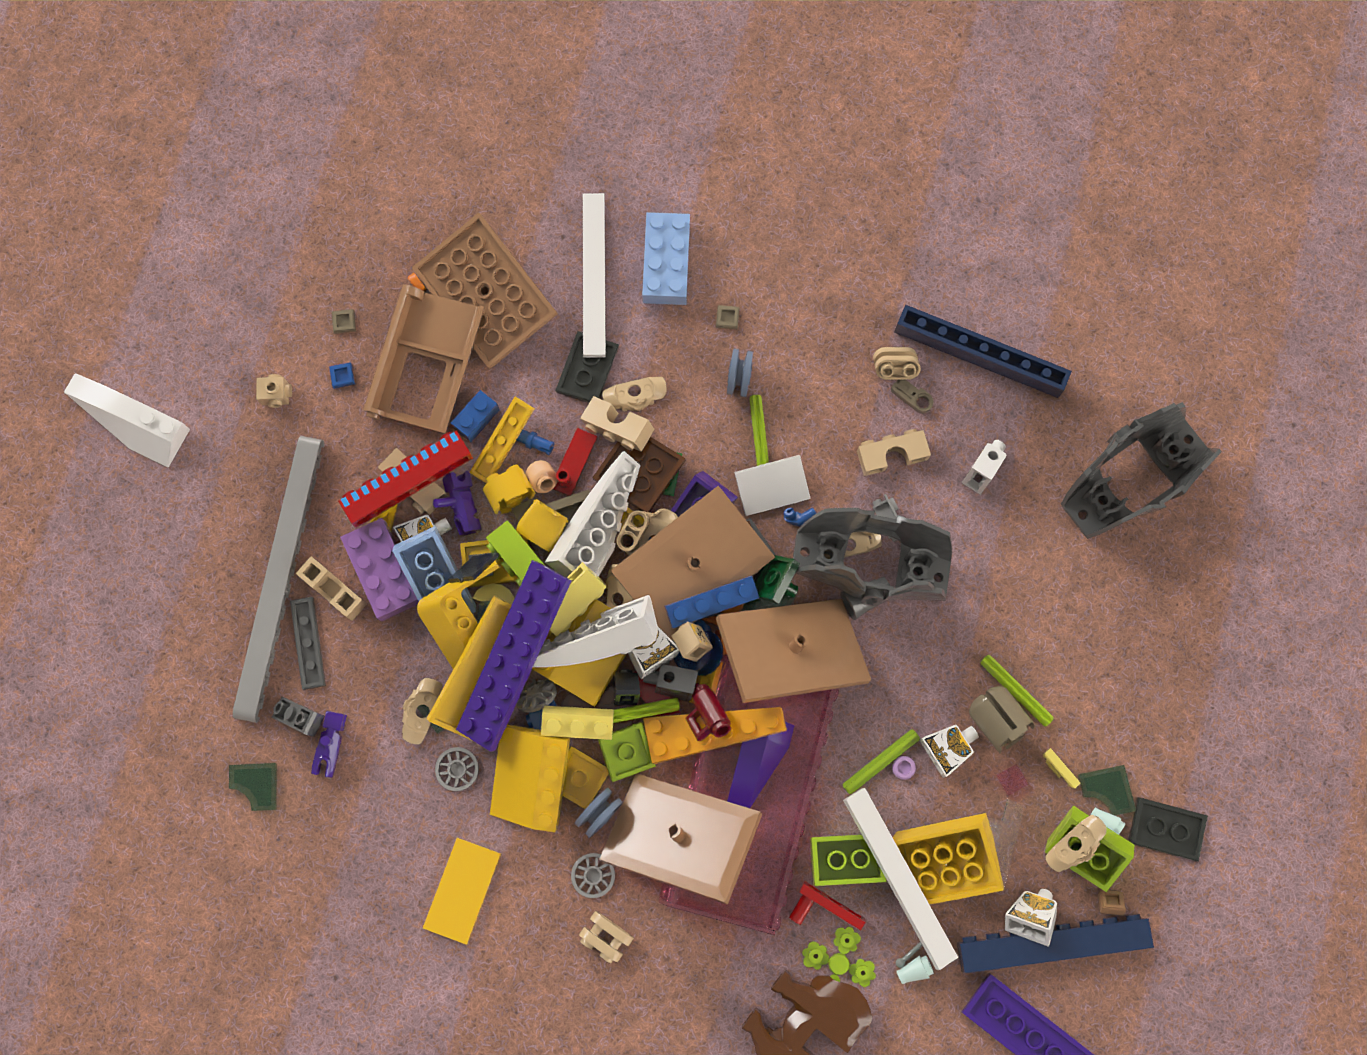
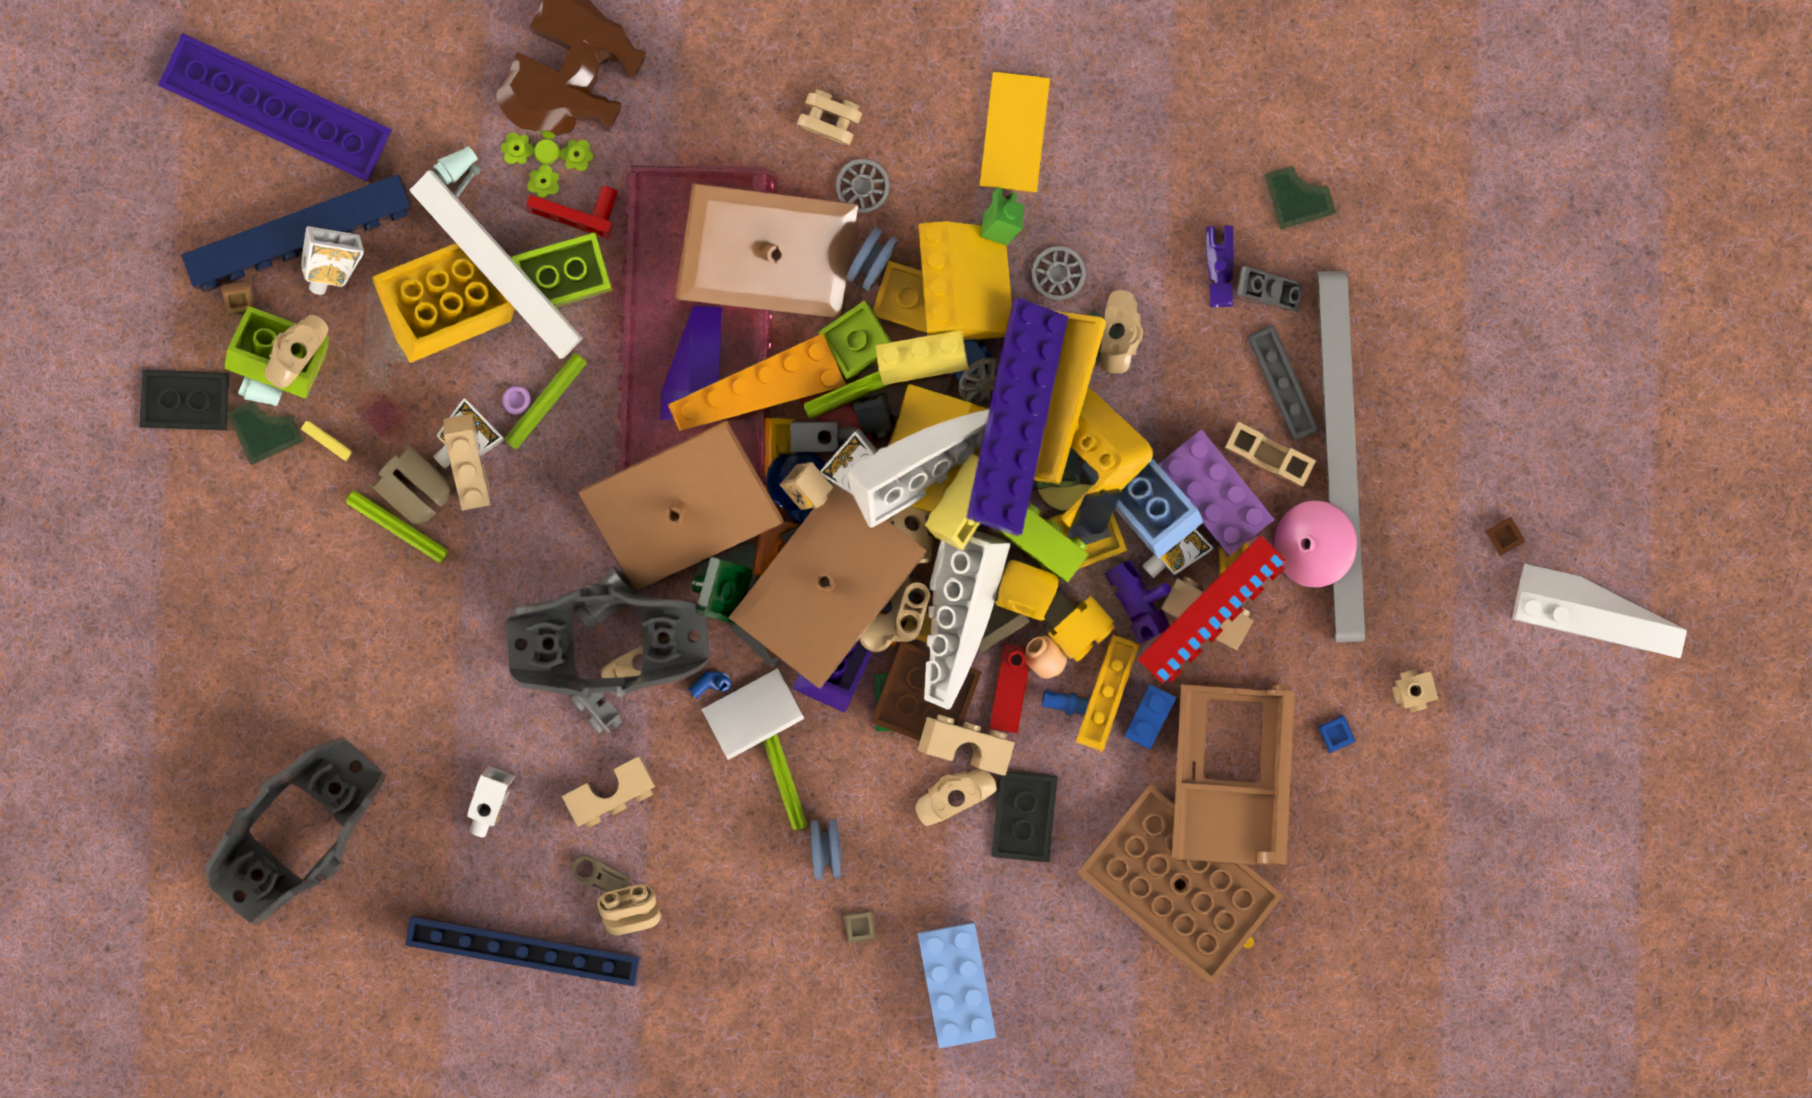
camera: 170 degrees right, 10 degrees up
(174, 489) = (1505, 536): none -> reddish brown plate
(301, 517) = (1331, 540): none -> bright pink dish
(343, 321) = (1354, 806): dark tan tile -> none
(414, 280) = (1272, 877): orange tile -> none
(487, 821) = (1002, 218): none -> bright green brick
(594, 276) = (1046, 943): white tile -> none
(711, 601) = (793, 542): blue plate -> none
(711, 712) = (764, 406): dark red piece -> none
(956, 732) = (466, 462): none -> tan arch

